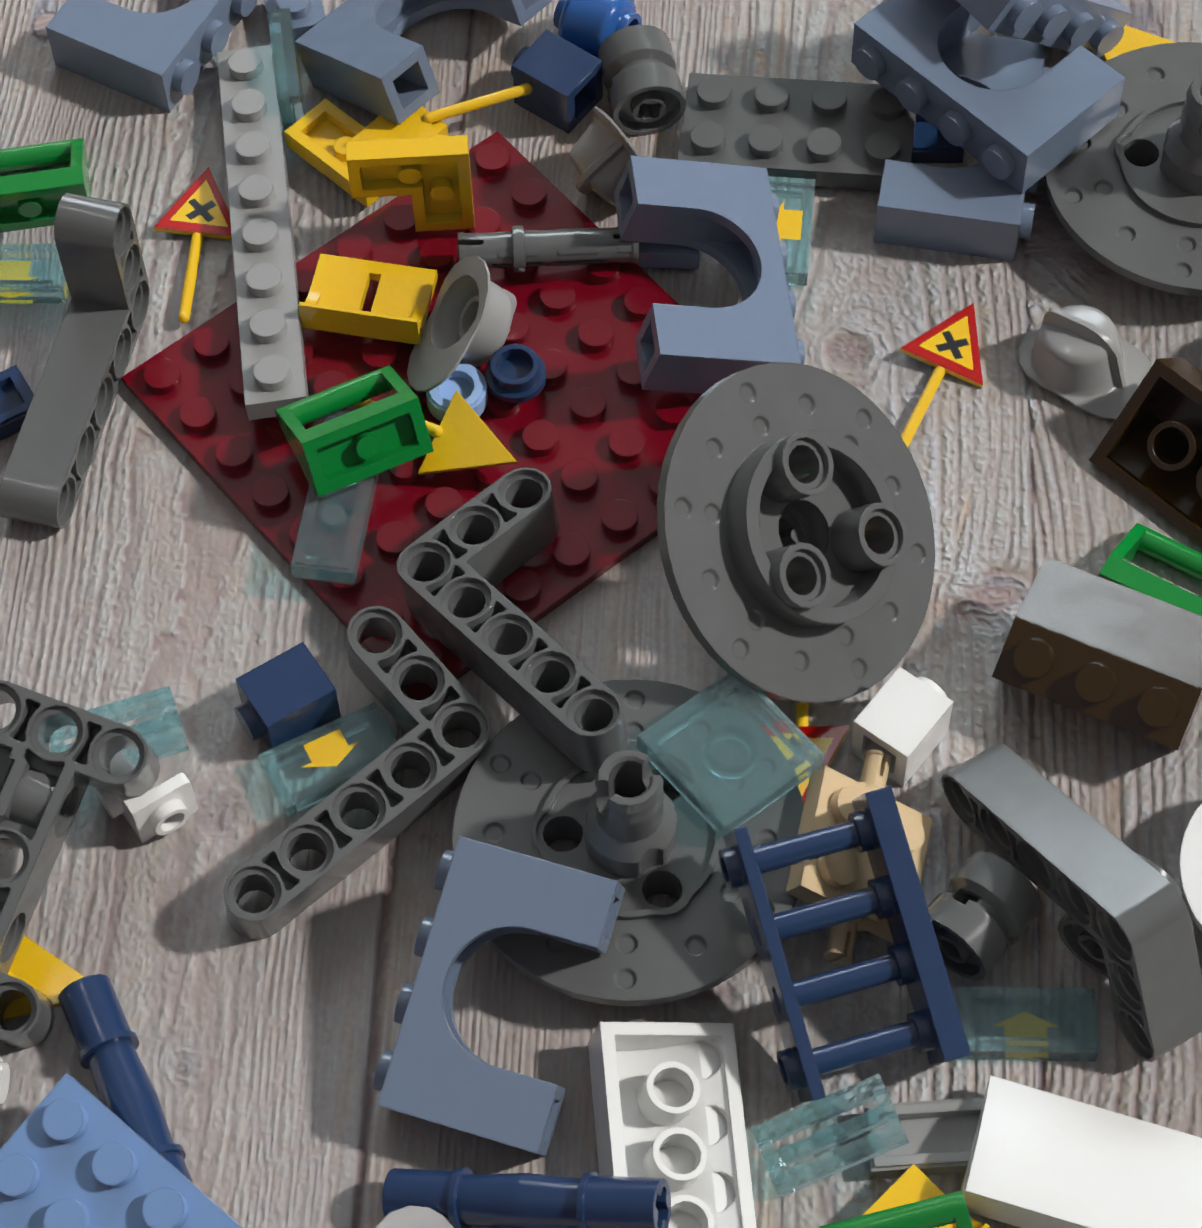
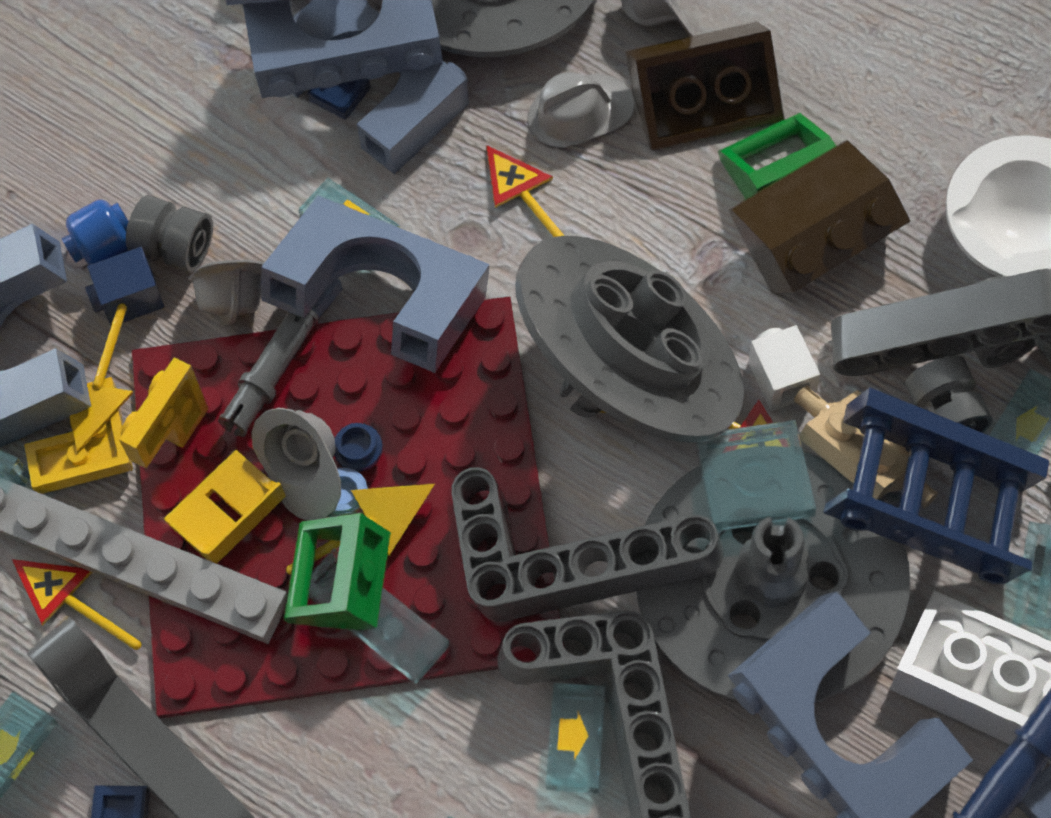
camera: 55 degrees left, 5 degrees up
(285, 698) = (516, 741): dark blue brick -> none
(796, 128) = (277, 168): dark grey plate -> none

